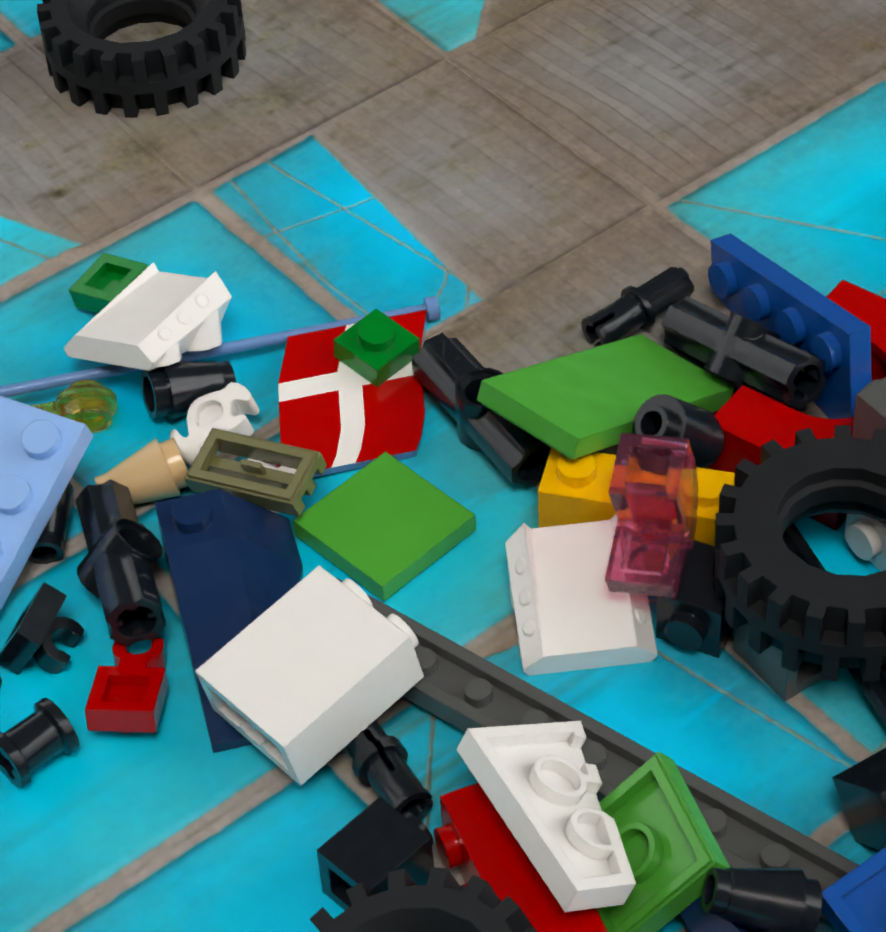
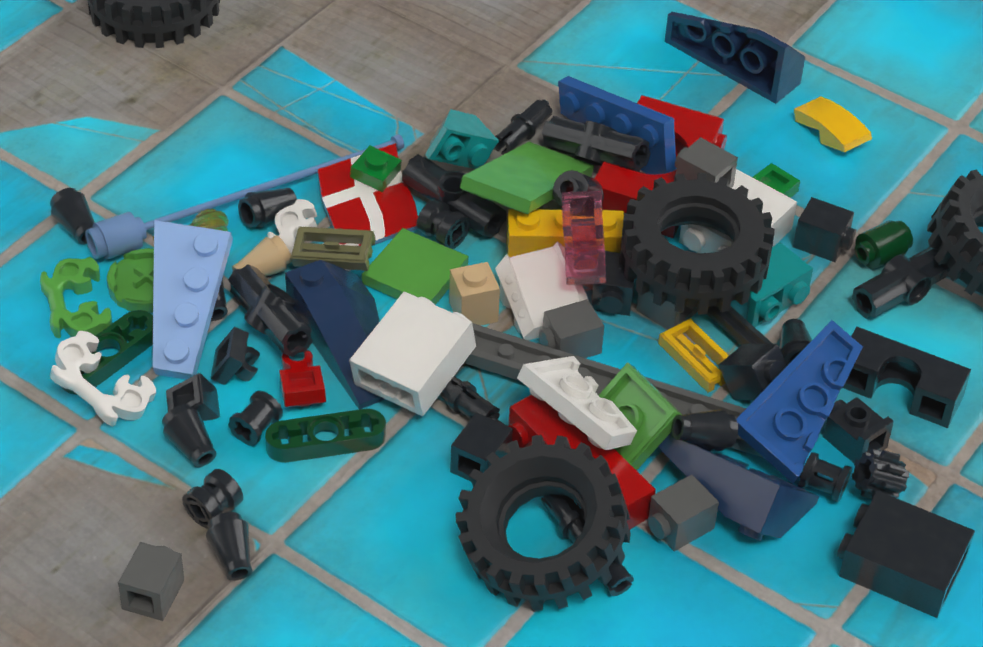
camera: 20 degrees left, 0 degrees up
(104, 281) = (195, 152): green plate -> none
(155, 321) = (237, 169): white slope -> none
(157, 811) = (314, 448): none -> dark green beam
(456, 460) = (439, 221): none -> black wheel
(457, 584) = (475, 293): none -> tan brick
(520, 319) = (462, 141): none -> teal slope
(602, 673) = (573, 329): none -> dark grey brick
(765, 713) = (692, 356): none -> yellow tile

